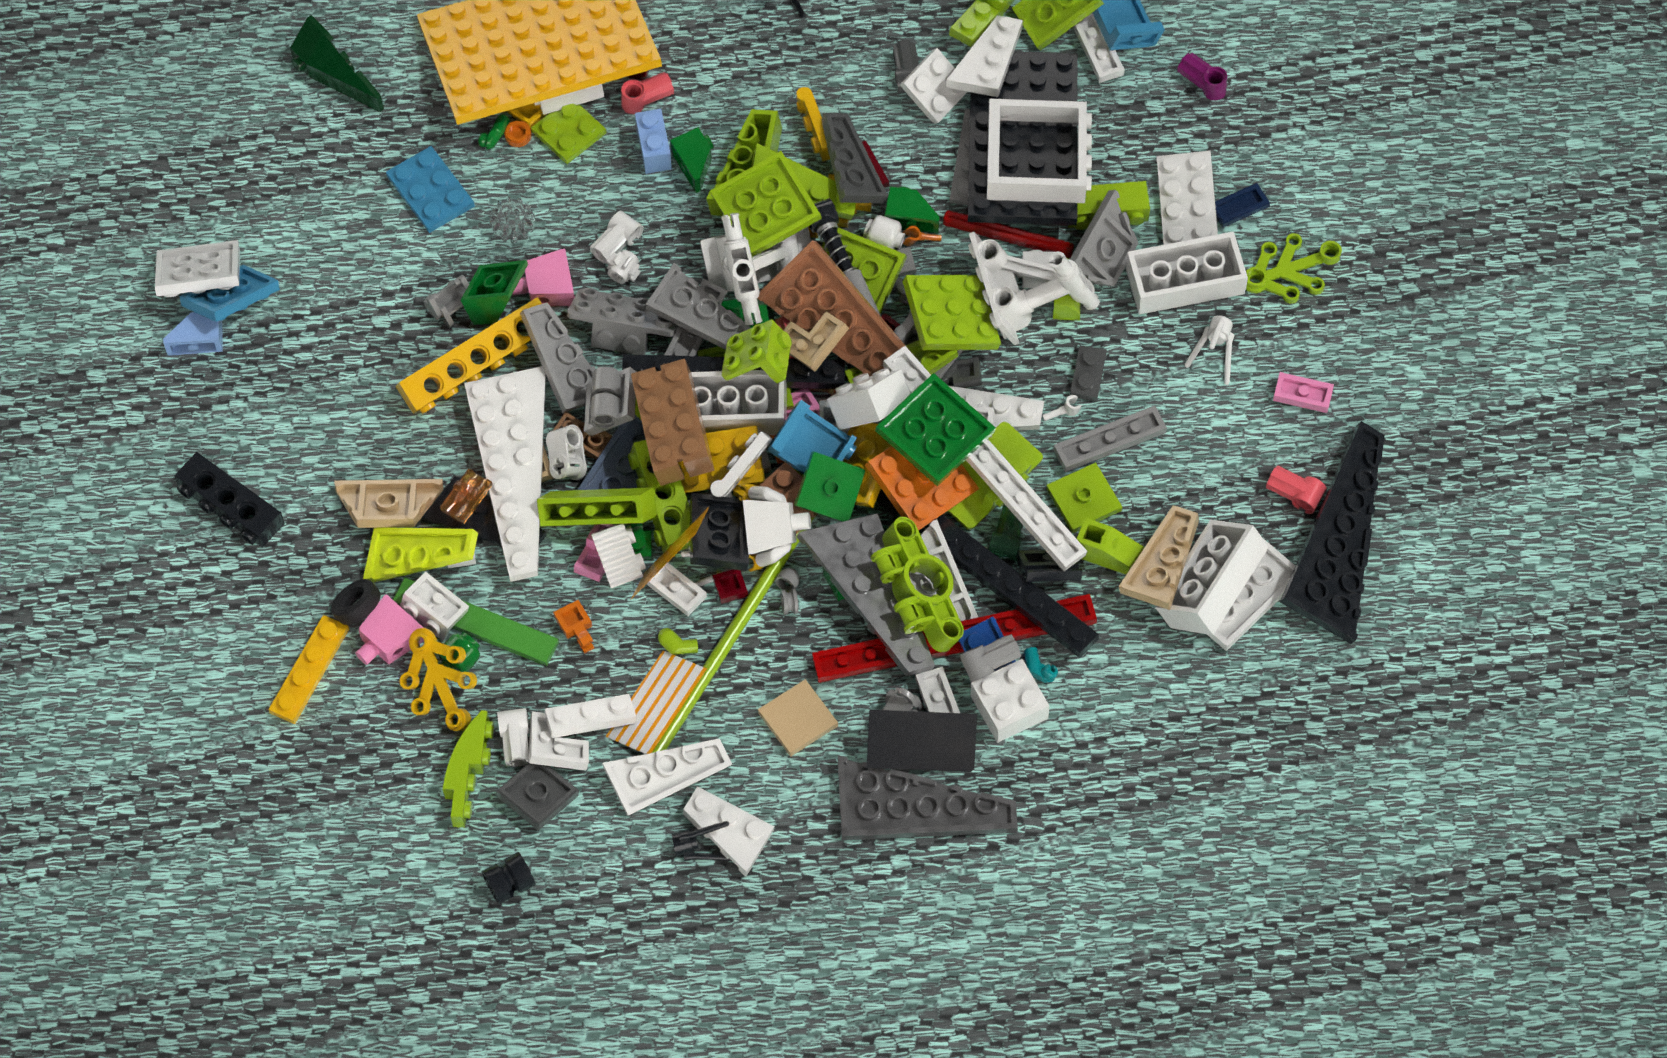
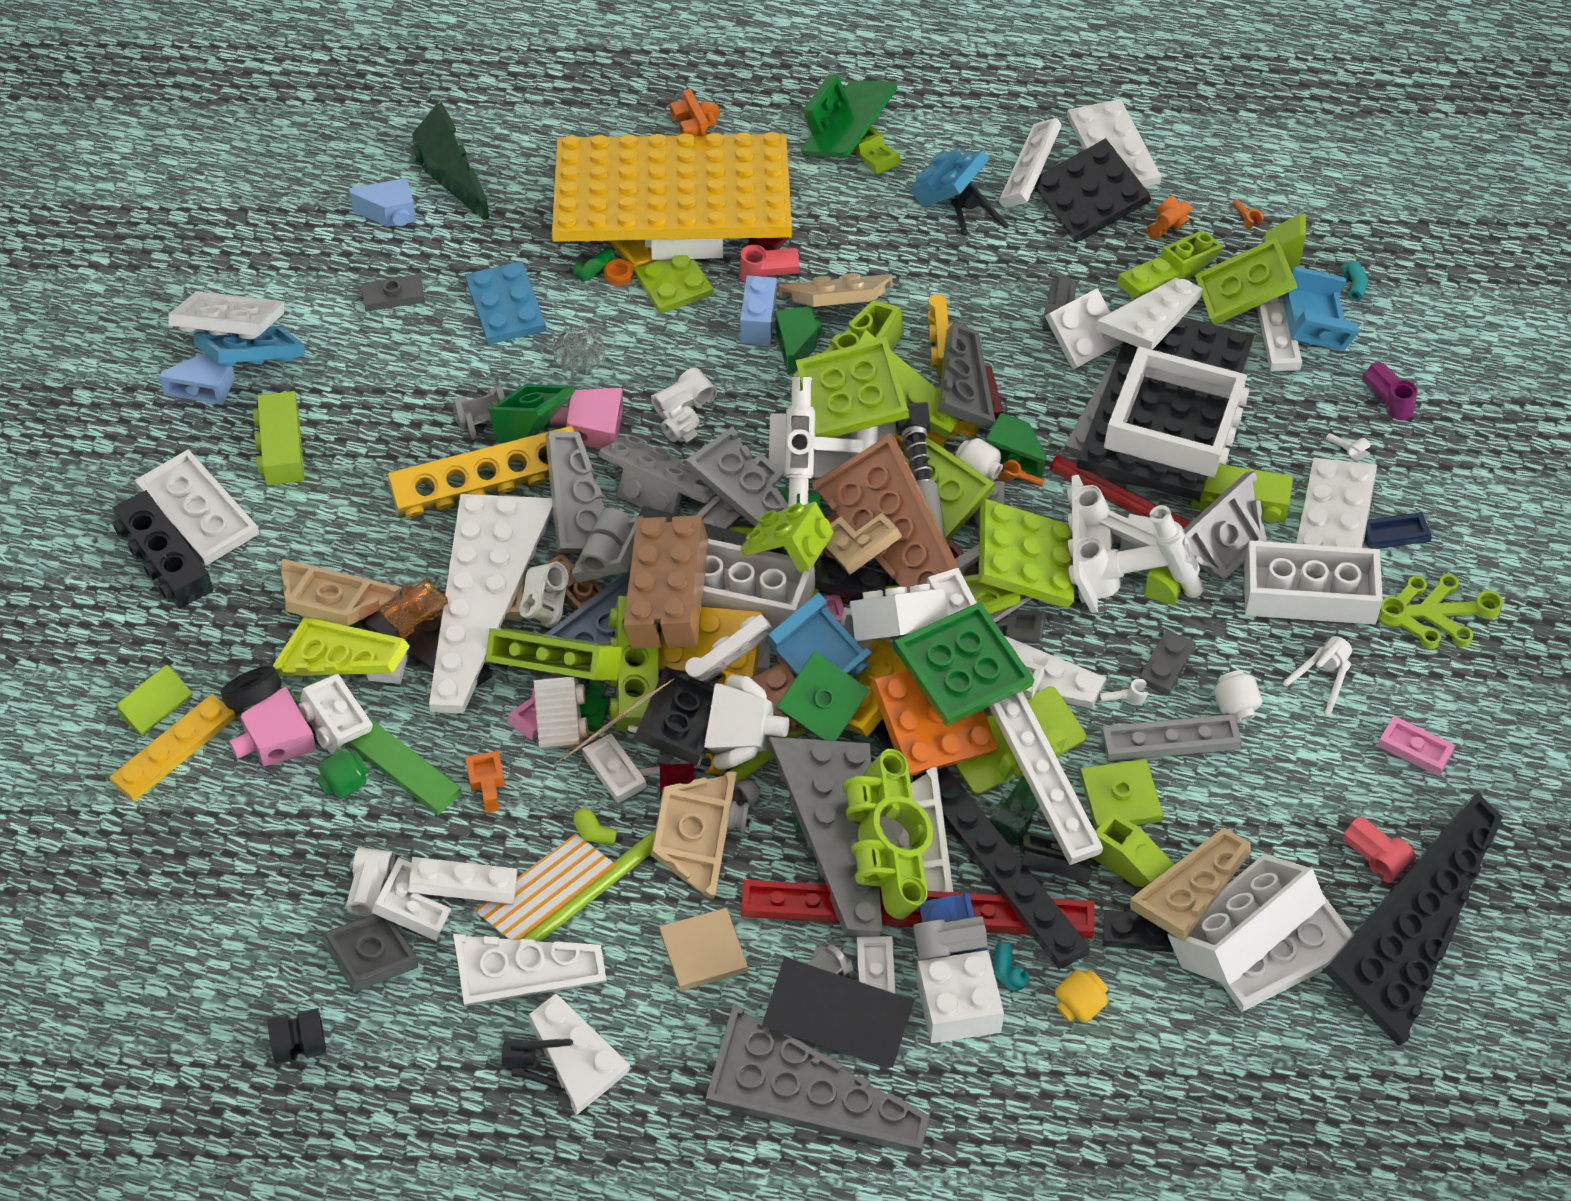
camera: 15 degrees right, 10 degrees down
(242, 452) = (198, 507): none -> white plate
(277, 634) = (153, 700): none -> lime slope
(287, 371) = (279, 438): none -> lime brick
(290, 120) = (385, 202): none -> light blue slope
(328, 205) = (392, 292): none -> dark grey plate
(436, 677) = (305, 792): yellow plant -> none
(466, 761) = (303, 890): lime slope -> none
(715, 105) = (838, 291): none -> tan wing
(759, 622) = (694, 830): none -> tan wing
(1102, 673) = (1081, 996): none -> yellow head
(1124, 609) = (1133, 931): none -> black hinge
(1153, 388) = (1238, 695): none -> white head
(1189, 139) = (1355, 450): none -> white hand

